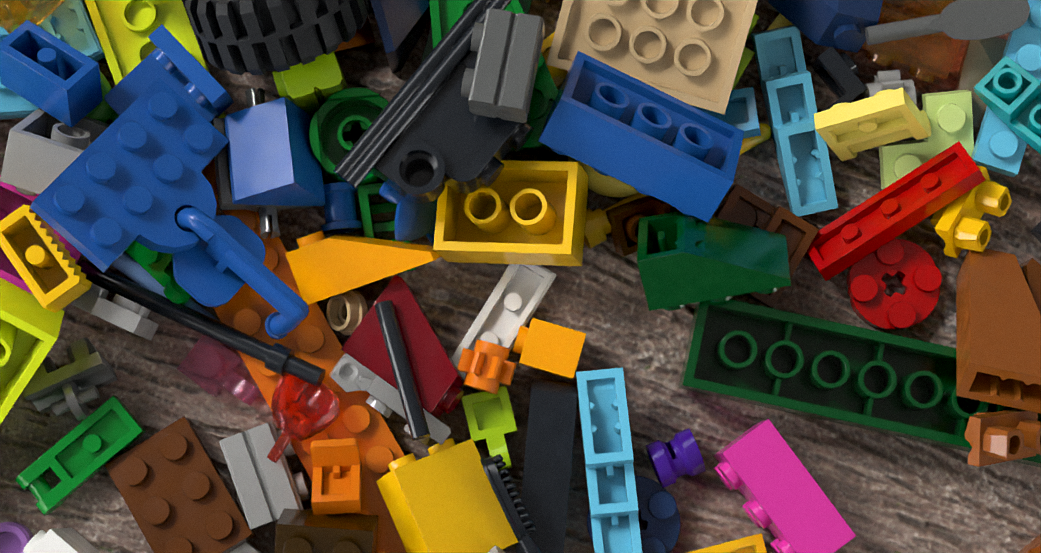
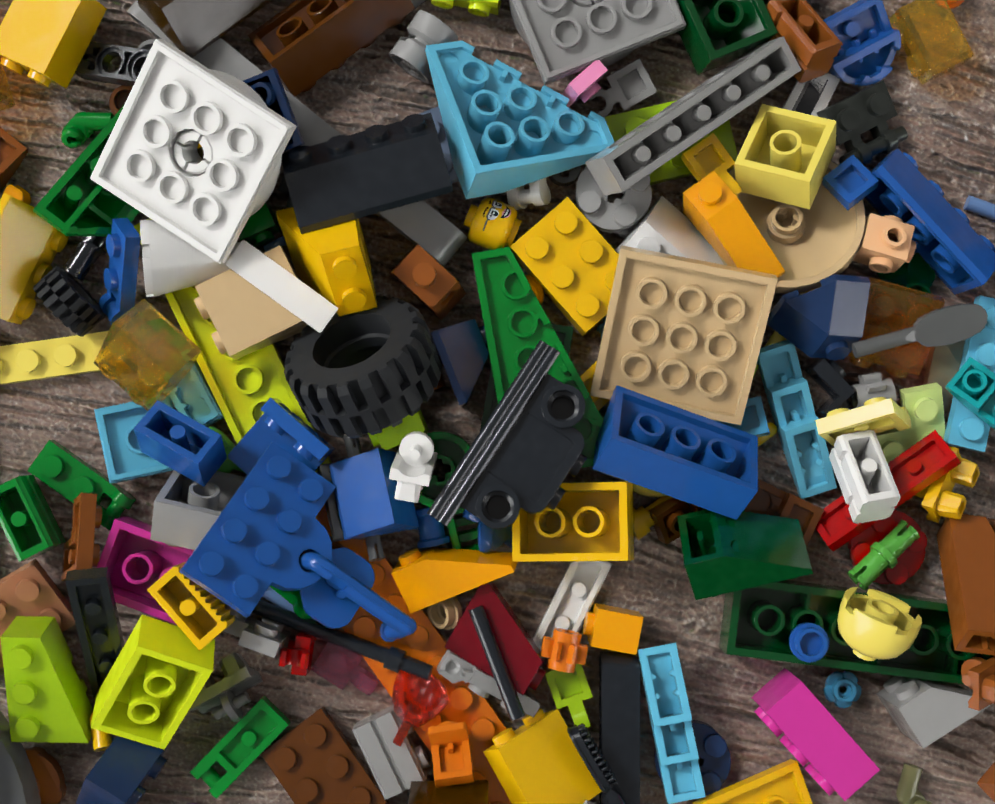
camera: 10 degrees left, 5 degrees up
(165, 344) = (298, 654): none -> red plate
(323, 115) = (413, 466): none -> white hips
(504, 65) = (562, 416): dark grey brick -> none
(675, 458) = (730, 702): dark purple wheel -> none
(783, 376) = (809, 642): none -> blue plate
(812, 452) = (833, 684): none -> dark azure plate
(864, 359) = (876, 624): none -> light yellow cylinder
(866, 185) = (864, 476): none -> white brick
(885, 287) = (883, 555): none -> bright green pin
(922, 474) = (926, 708): none -> light grey slope

